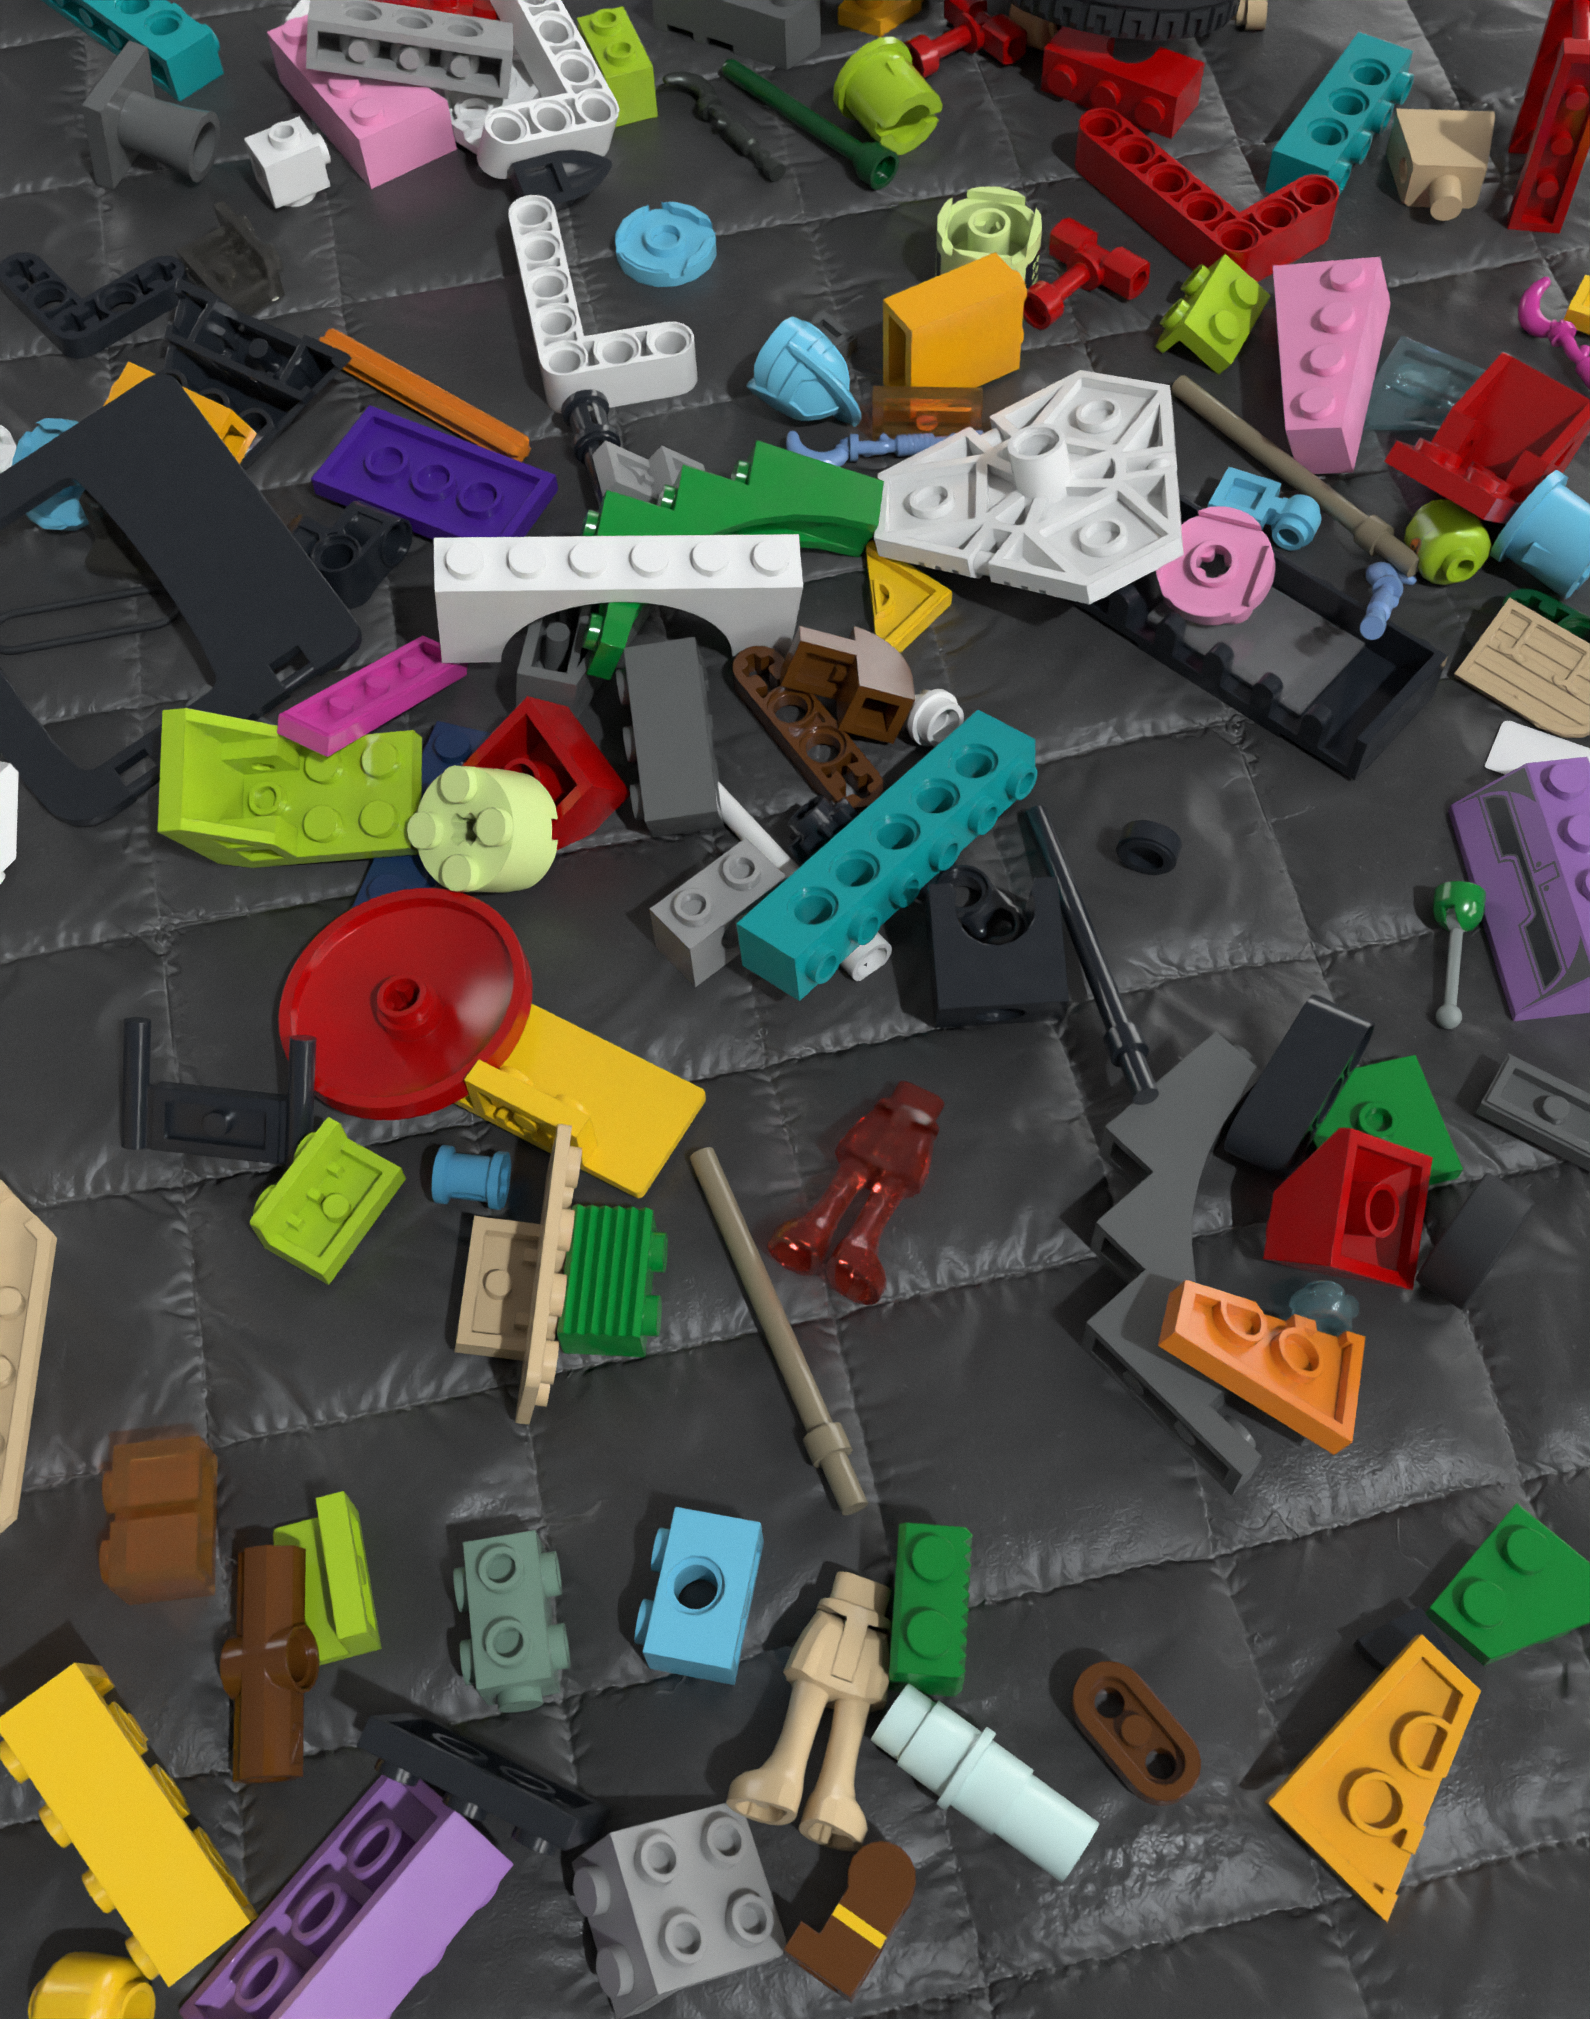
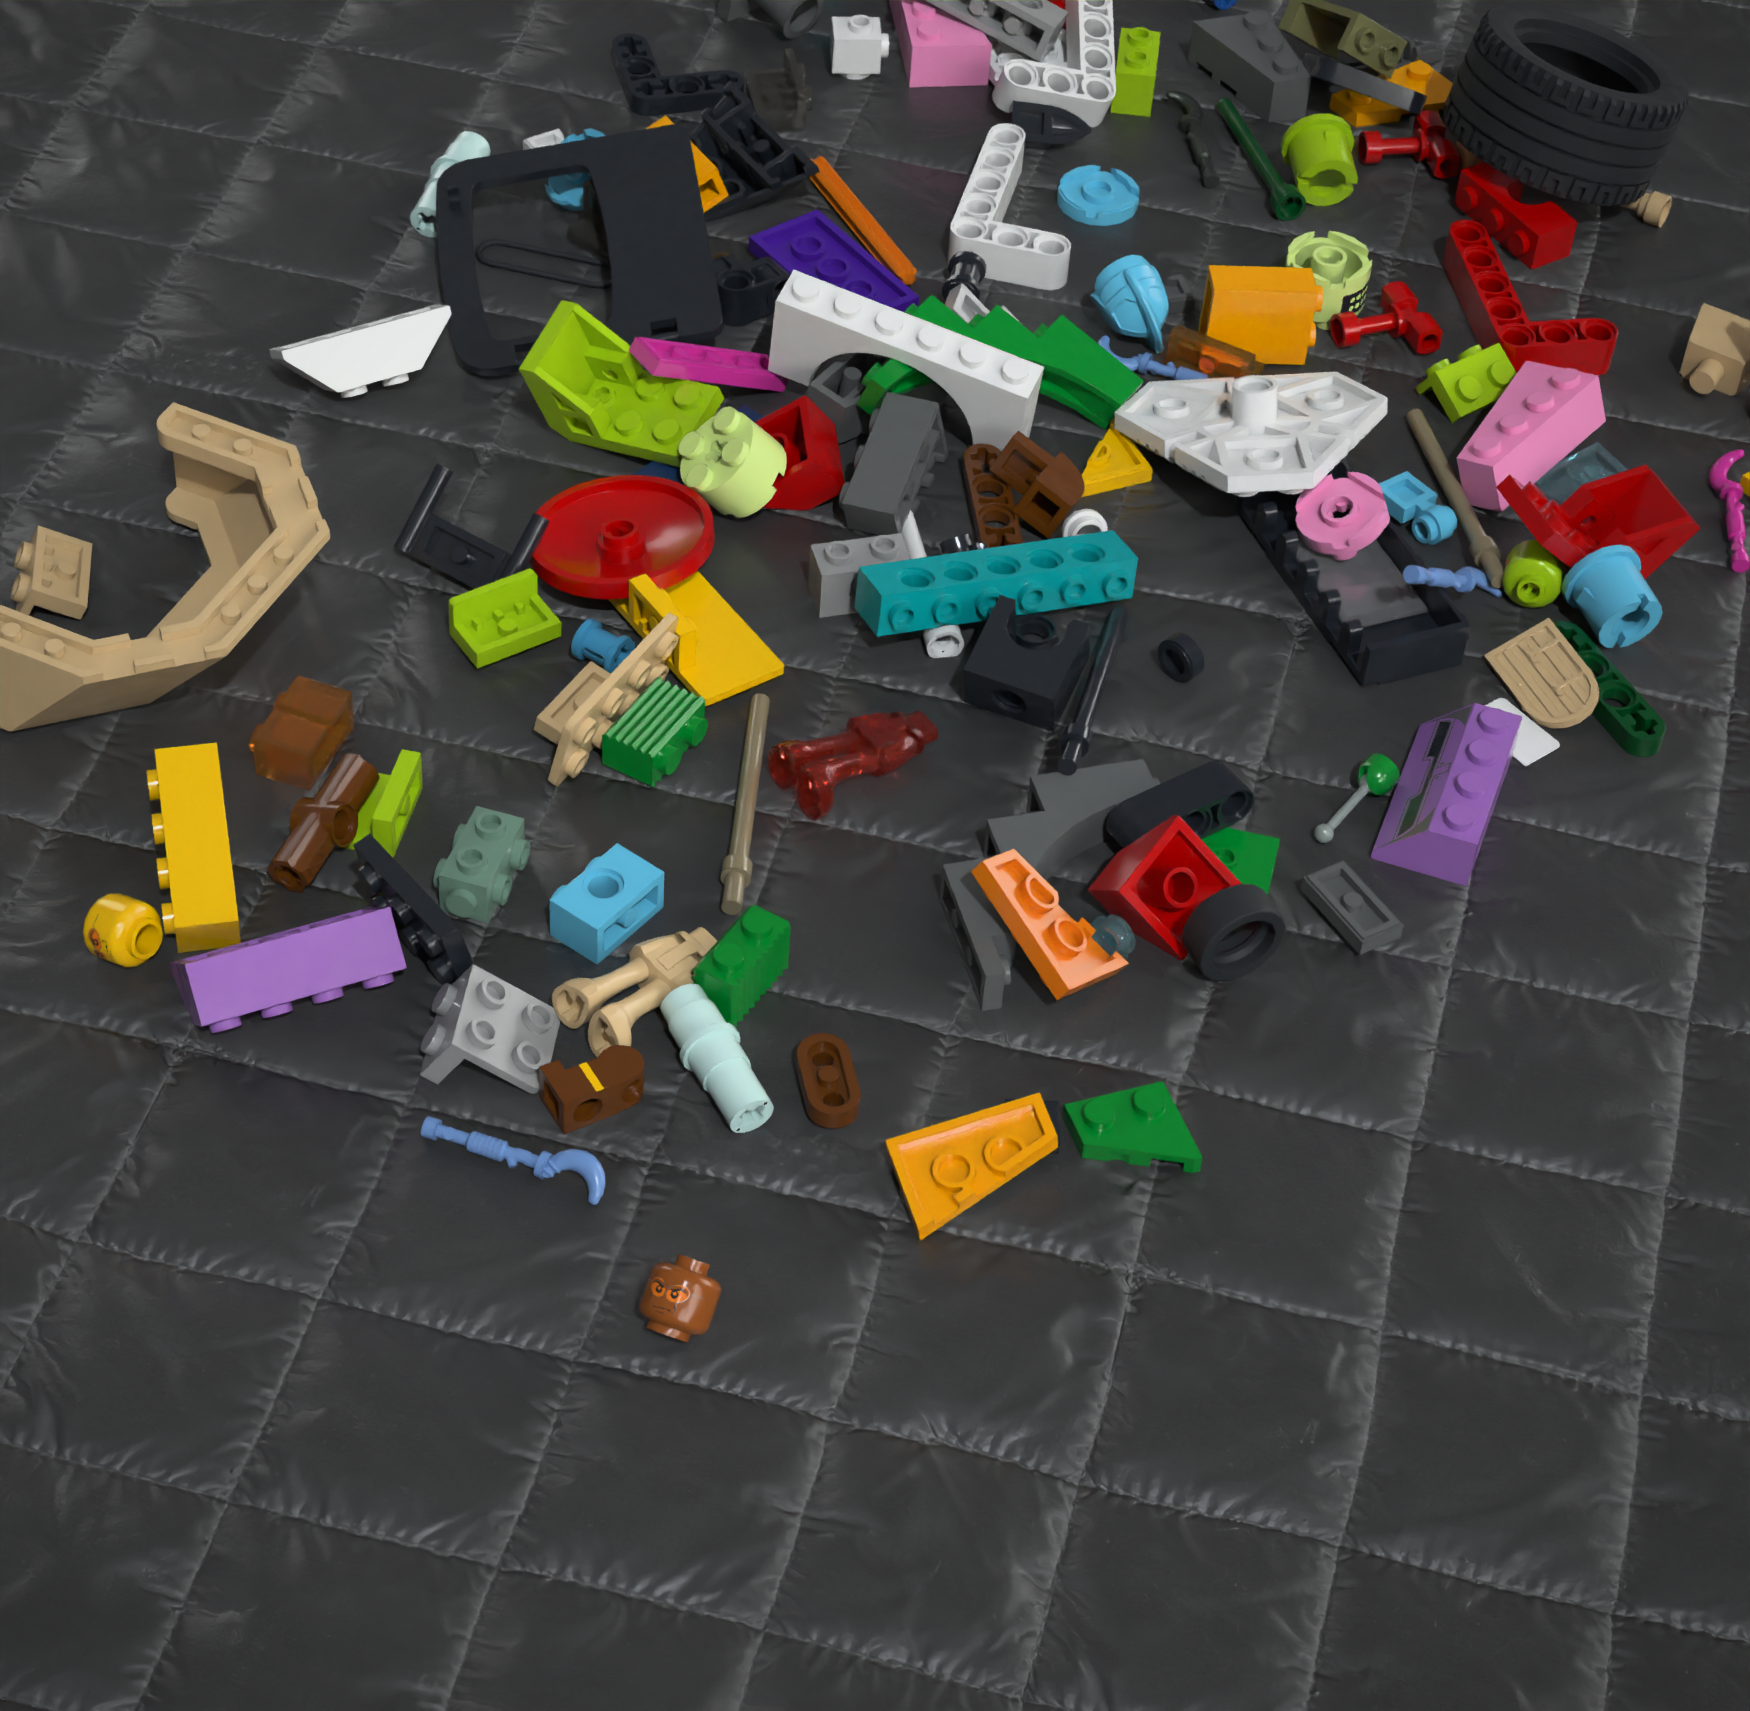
camera: 20 degrees right, 15 degrees down
(1343, 114) = (1667, 296): teal brick -> none

